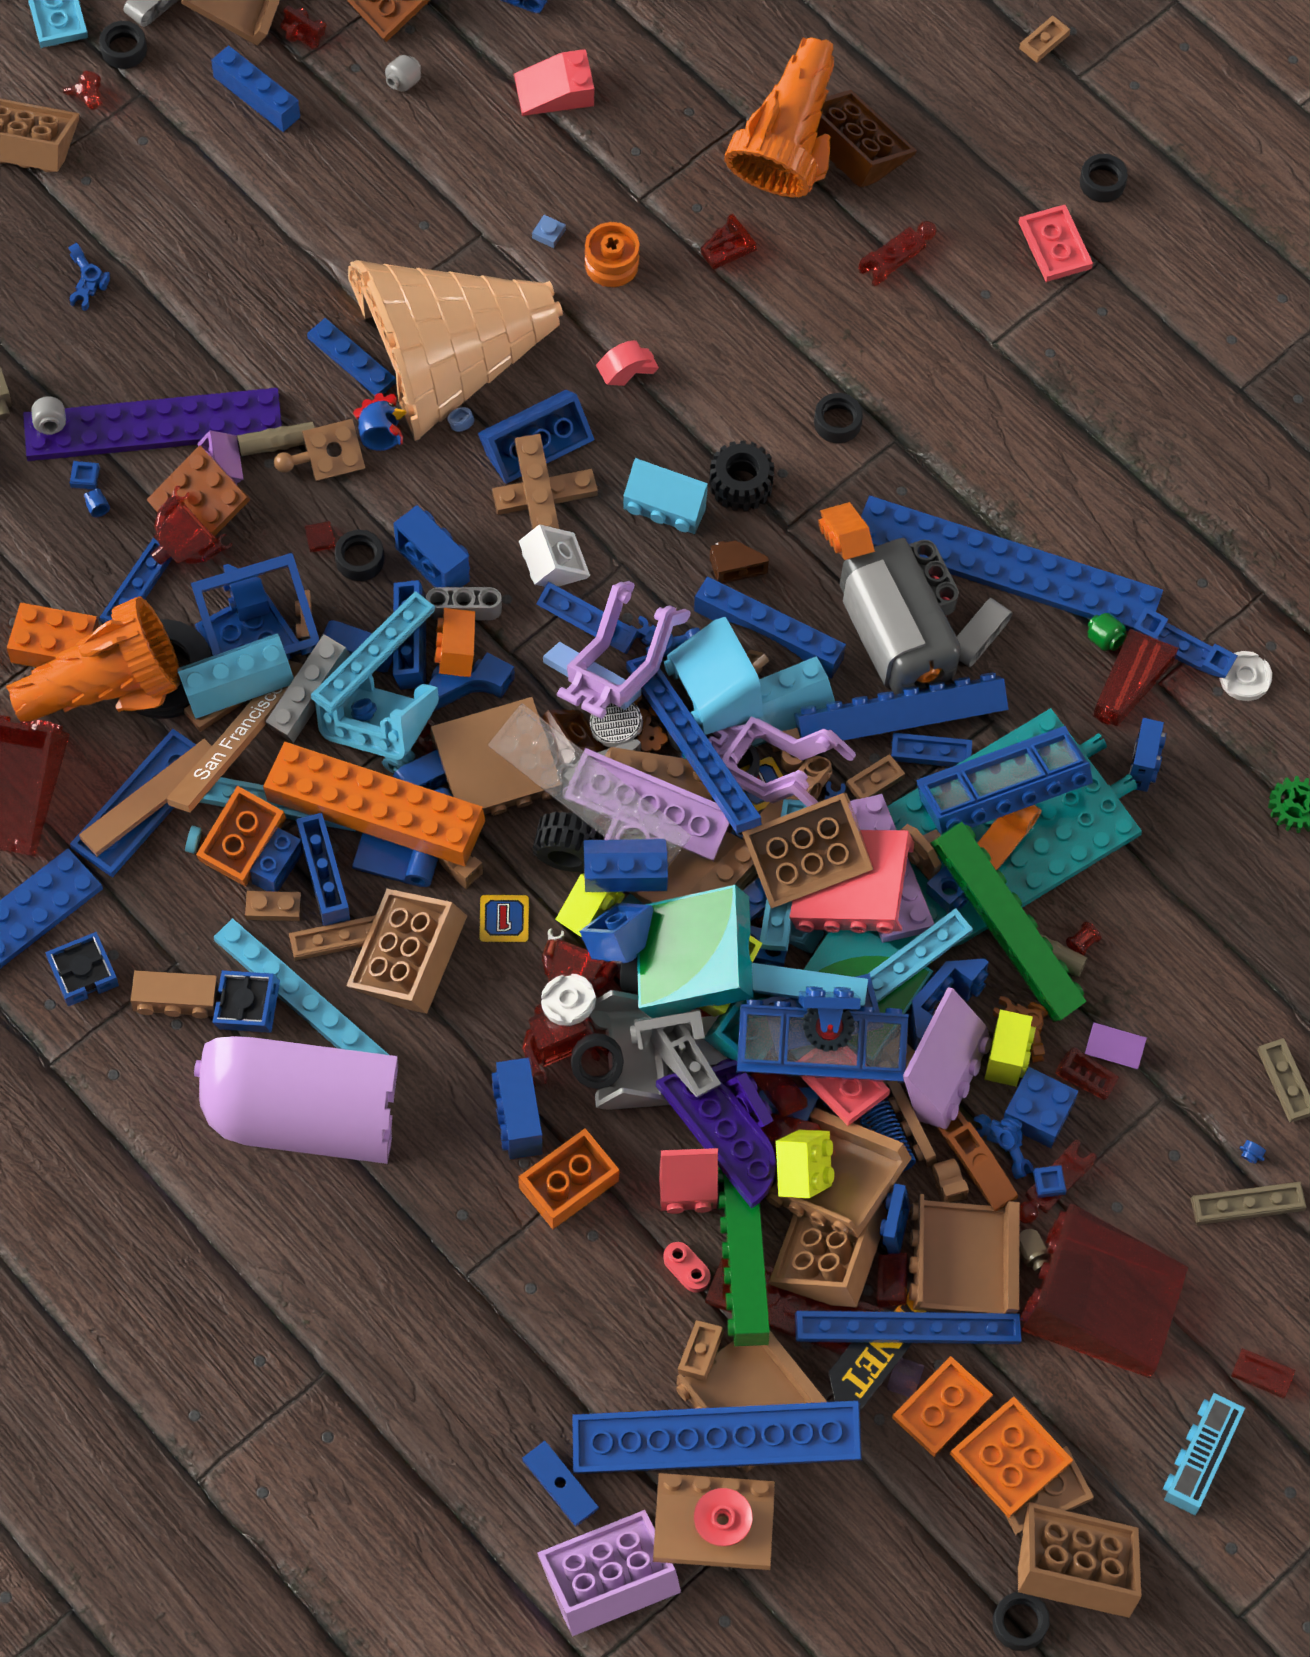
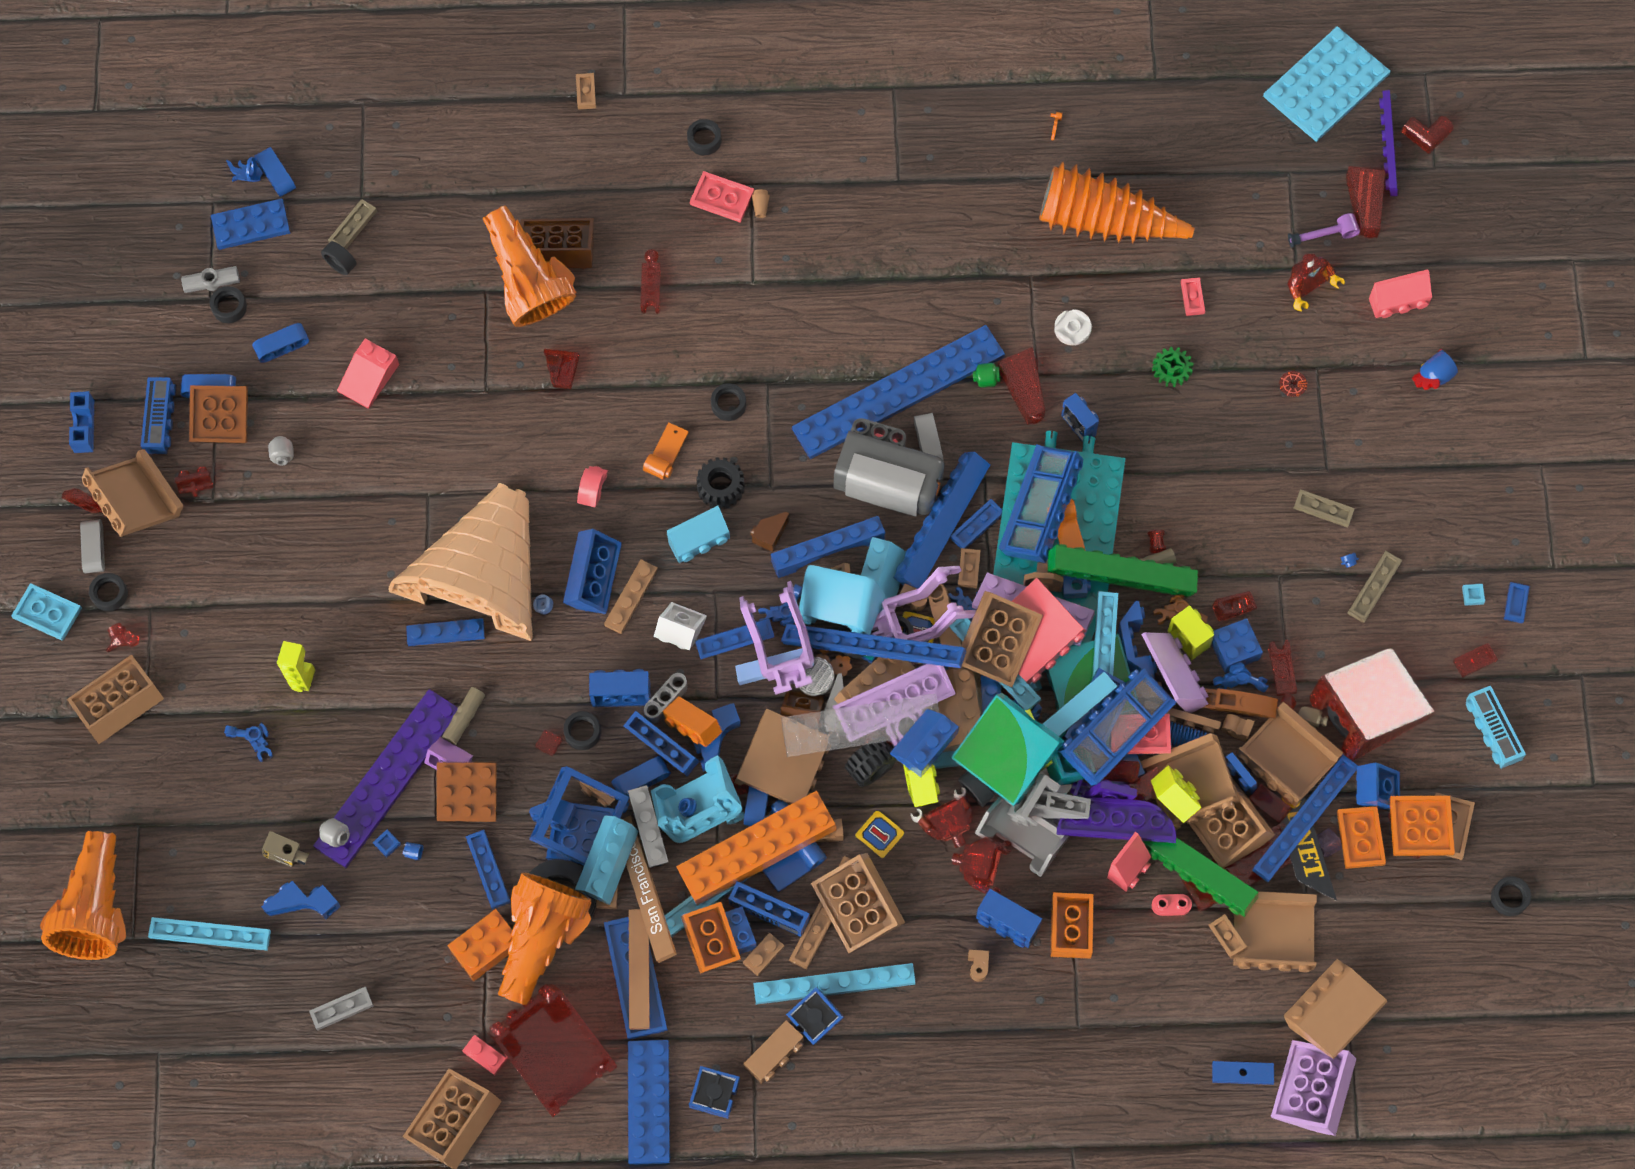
camera: 45 degrees left, 5 degrees up
(180, 231) = (295, 670): none -> neon yellow arch
(183, 534) = (484, 817): clear red torso -> none
(193, 839) = (684, 966): medium azure tile -> none
(255, 88) = (212, 541): blue brick -> none
(298, 1097) = (902, 1034): lavender panel -> none
(322, 464) = (488, 695): medium nougat plate -> none
(372, 652) = (662, 772): medium azure tile -> none
(379, 422) = (505, 651): blue piece -> none
(445, 1123) = (980, 964): none -> medium nougat leg
(536, 481) = (627, 597): medium nougat plate -> none
(548, 231) = (461, 456): medium blue plate -> none
(568, 999) = (968, 839): white tile -> none
(602, 1081) = (1028, 857): black tyre -> none
(612, 254) = (512, 435): orange wheel -> none
(618, 932) = (959, 779): blue slope -> none
(713, 408) = (666, 451): none -> orange door
(717, 1437) = (1289, 969): blue plate -> none
(723, 1503) = (1350, 995): coral dish -> none
(828, 1020) = (1113, 709): plate -> none
(846, 531) = (813, 457): orange brick -> none
(1019, 1374) = (1376, 785): none -> blue slope
(1049, 1181) = (1283, 676): blue tile -> none
(1080, 1560) = (1504, 838): medium nougat slope -> none
(1085, 281) = (760, 202): none -> medium nougat cone
(1115, 1045) = (1232, 577): medium lavender brick -> none
(1191, 650) = (1038, 340): blue slope -> none

